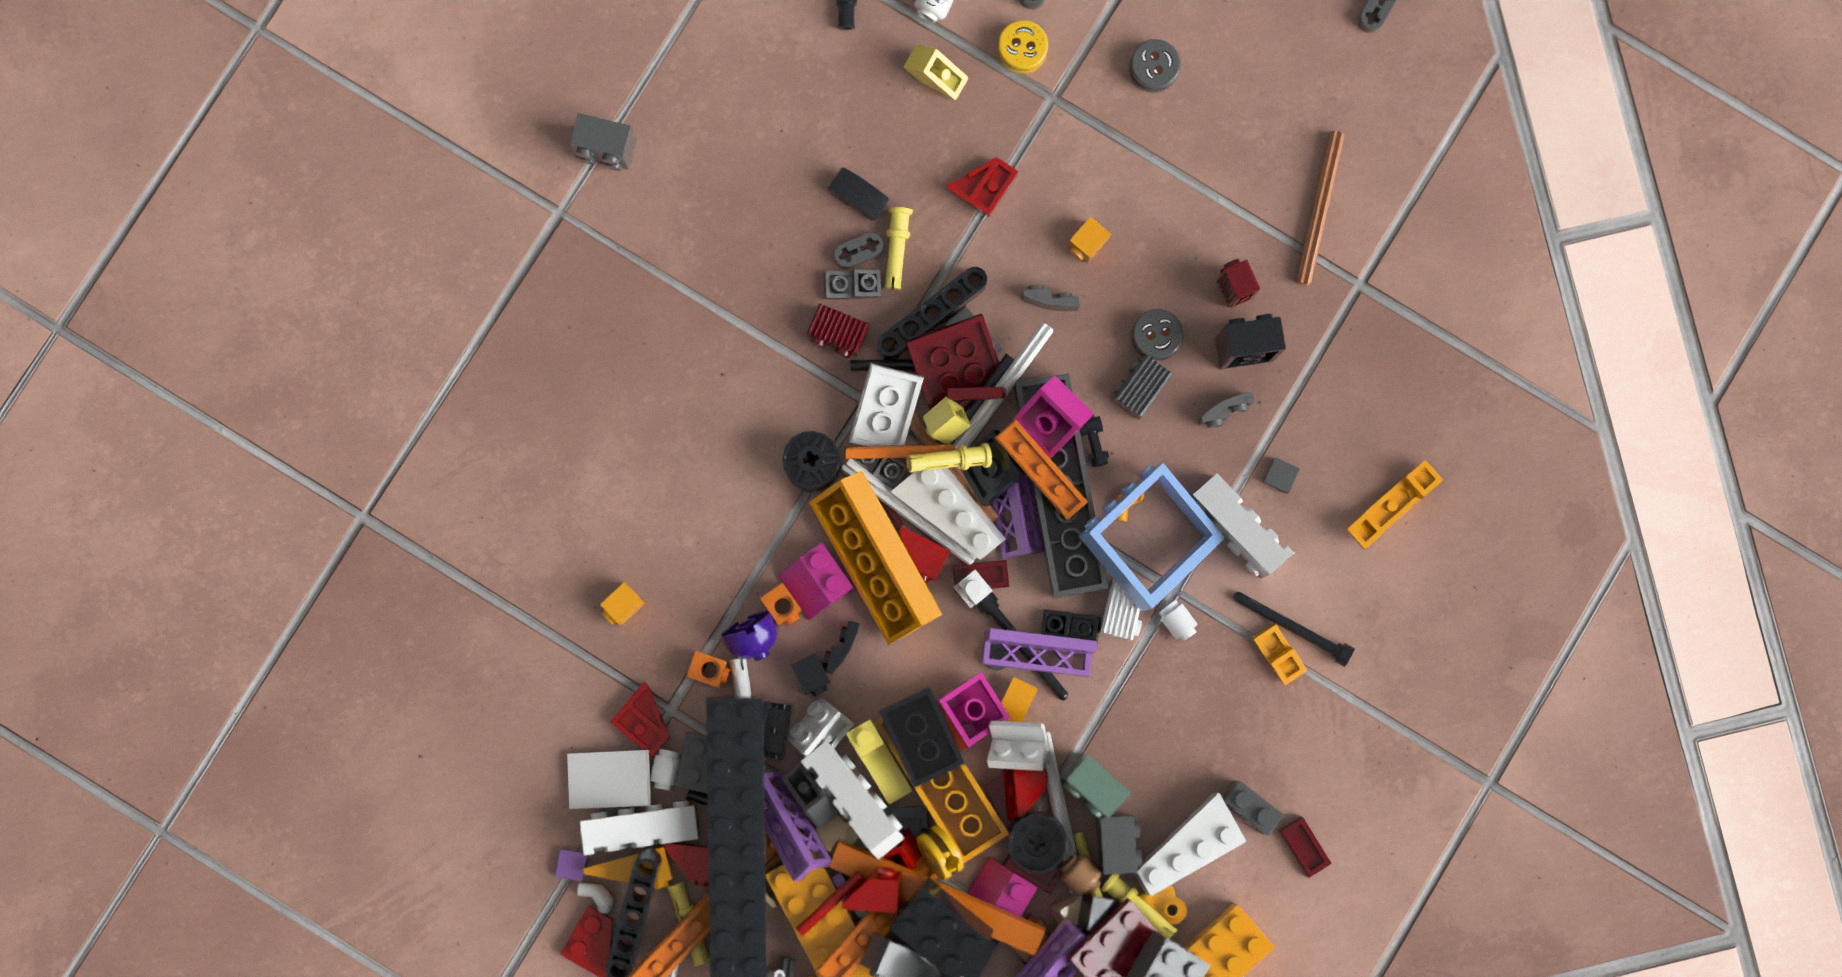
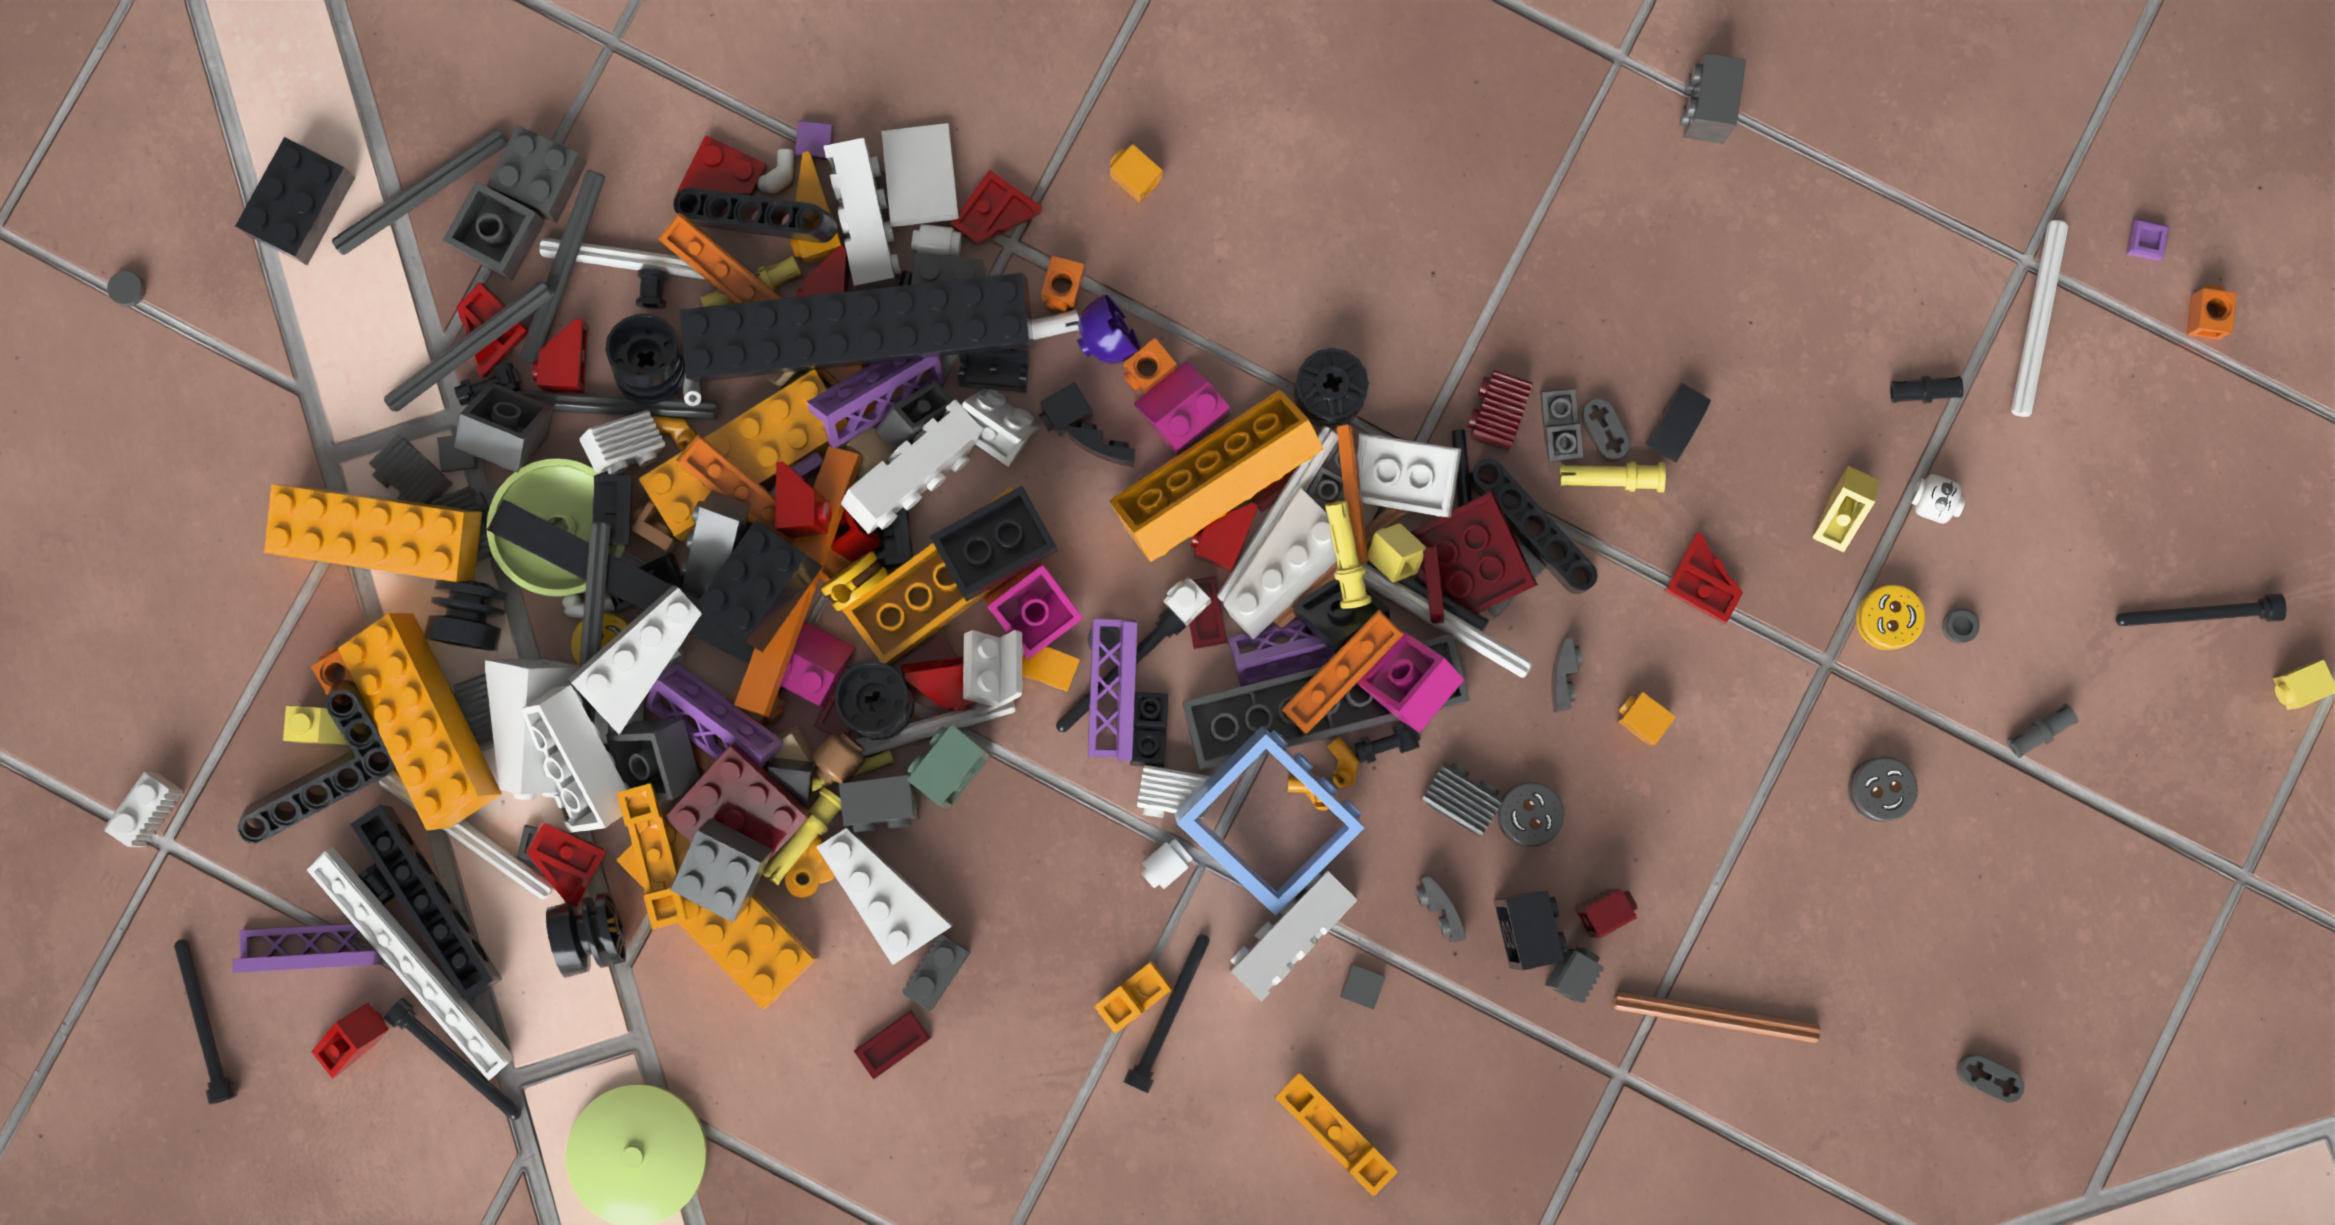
camera: 90 degrees right, 0 degrees up
(830, 903) = (783, 449): red bar -> none
(879, 761) = (974, 489): light yellow arch -> none
(1109, 474) = (1347, 763): none -> light orange arm
(1288, 307) = (1576, 974): none -> dark grey brick

